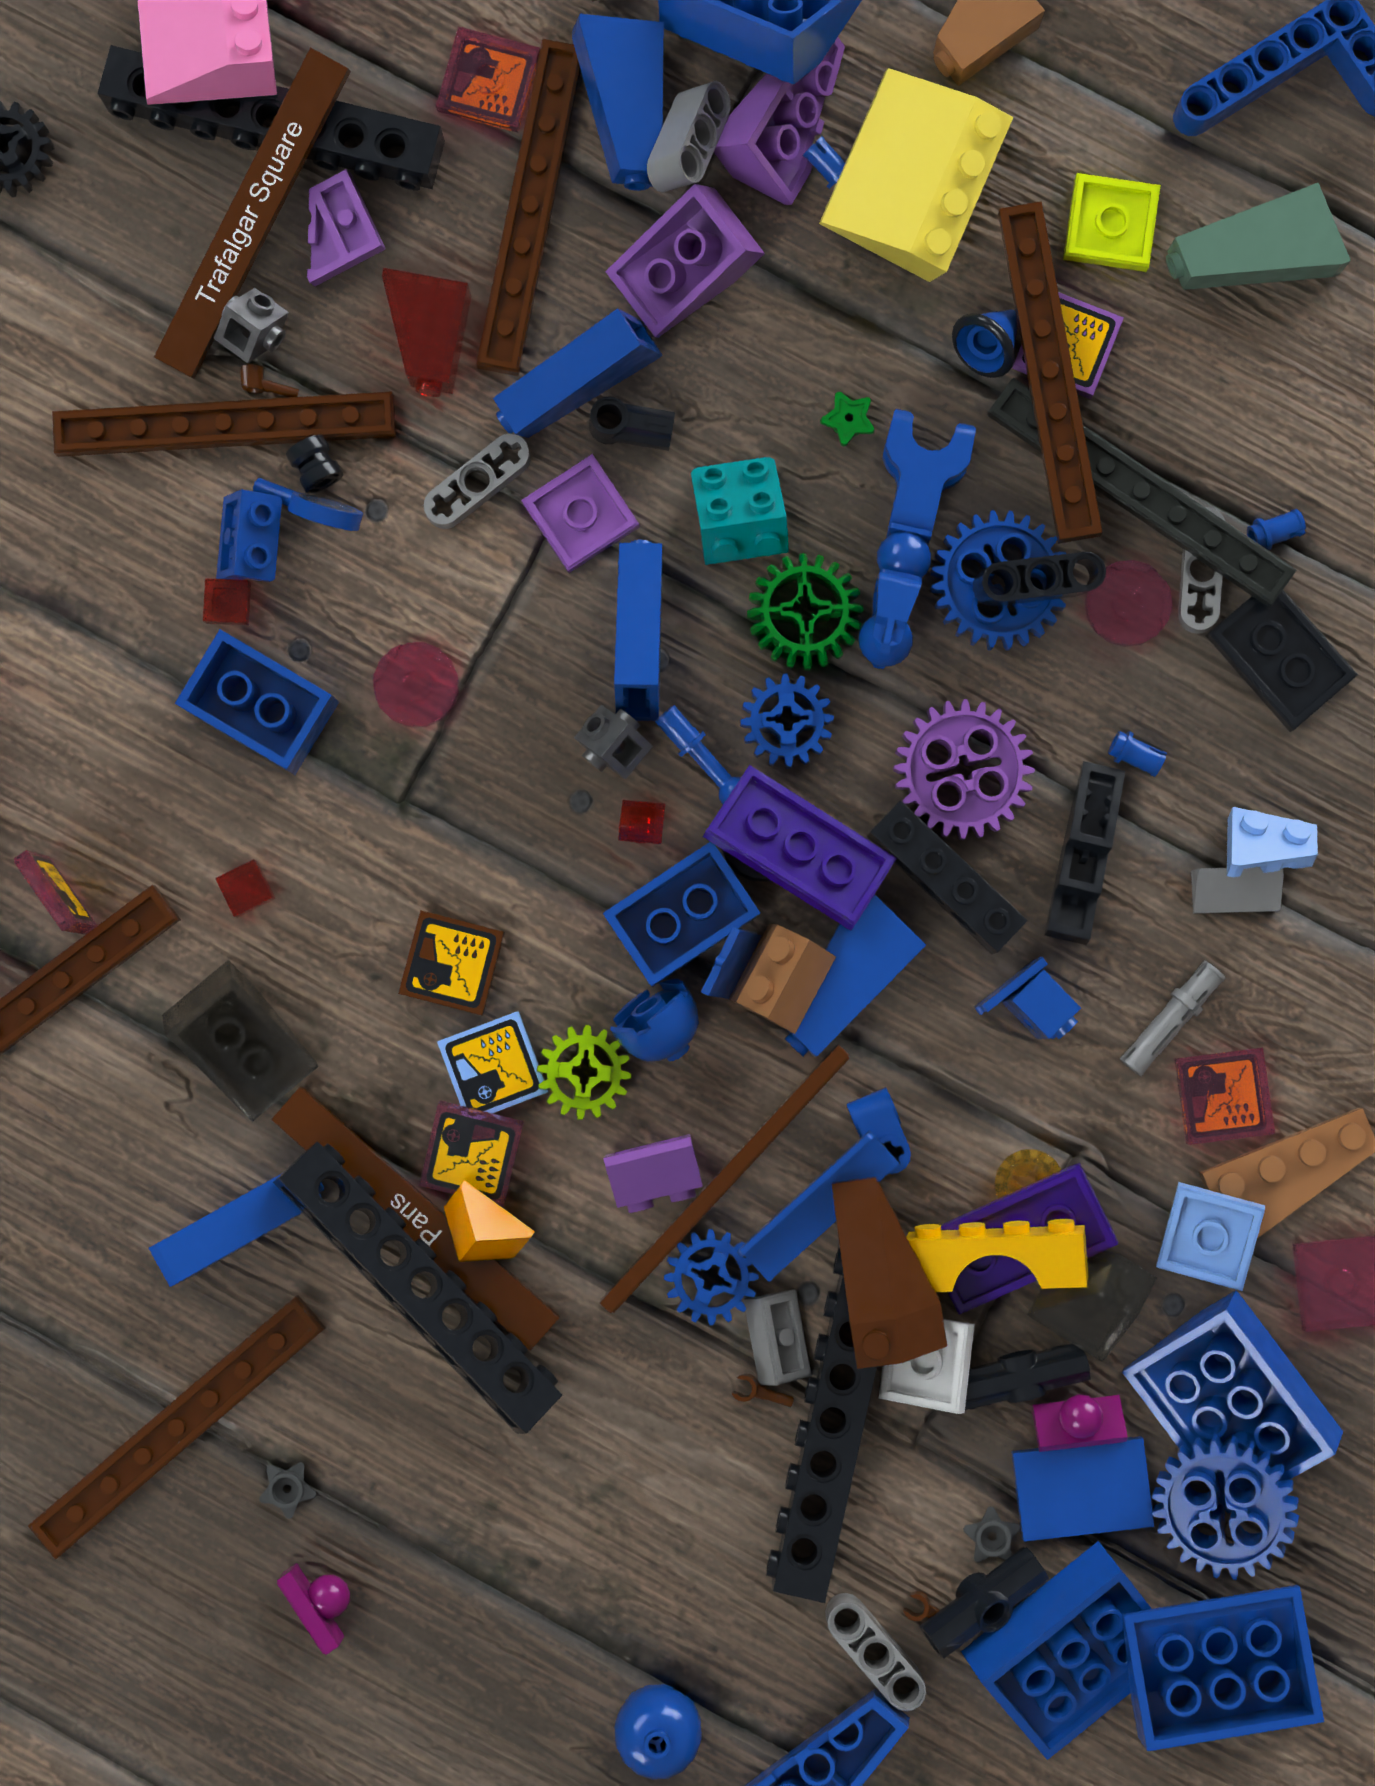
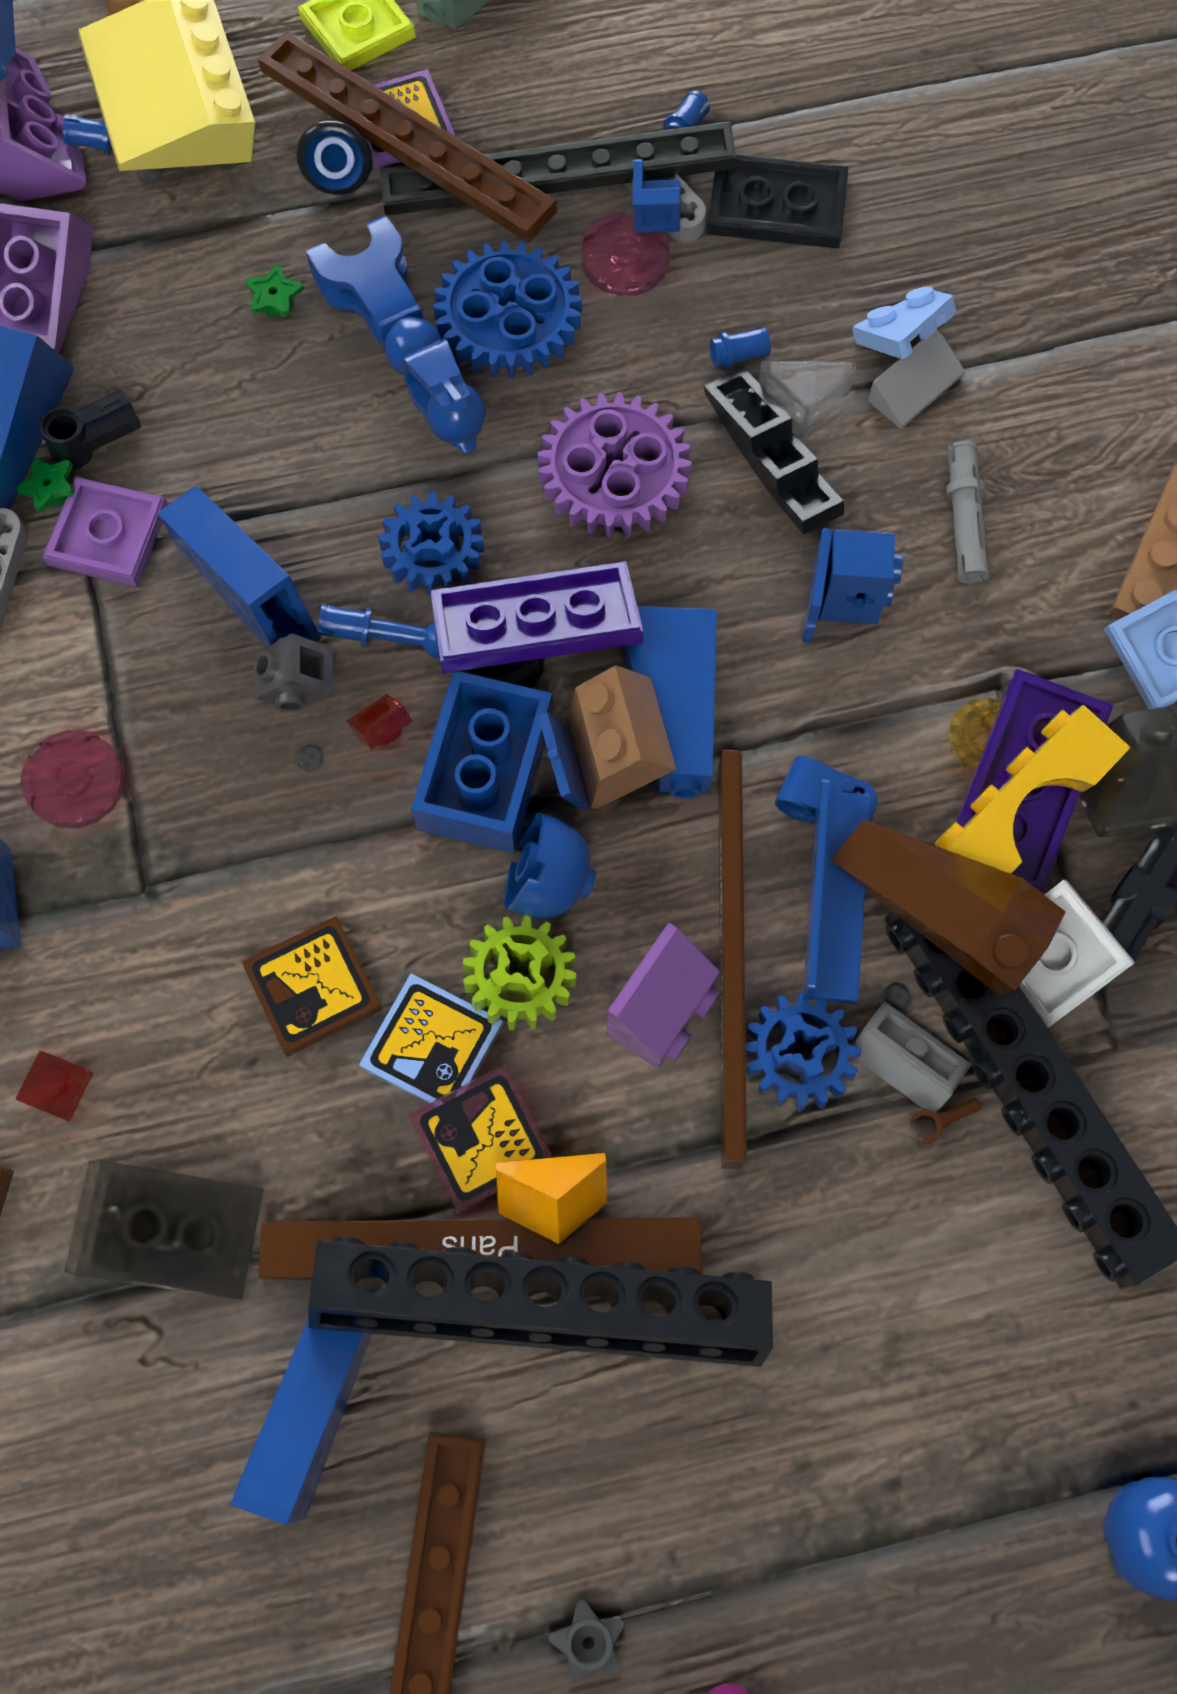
camera: 45 degrees left, 15 degrees down
(573, 454) = (53, 494): none -> green plate
(740, 510) = (247, 421): teal bracket -> none
(784, 613) = (365, 469): green gear -> none
(947, 878) = (687, 550): black brick -> none
(1057, 571) = (537, 265): black beam -> none
(1146, 831) = (807, 388): none -> clear slope
(1181, 588) = (655, 203): none -> blue panel
(1224, 1096) = (1067, 538): clear pink tile -> none

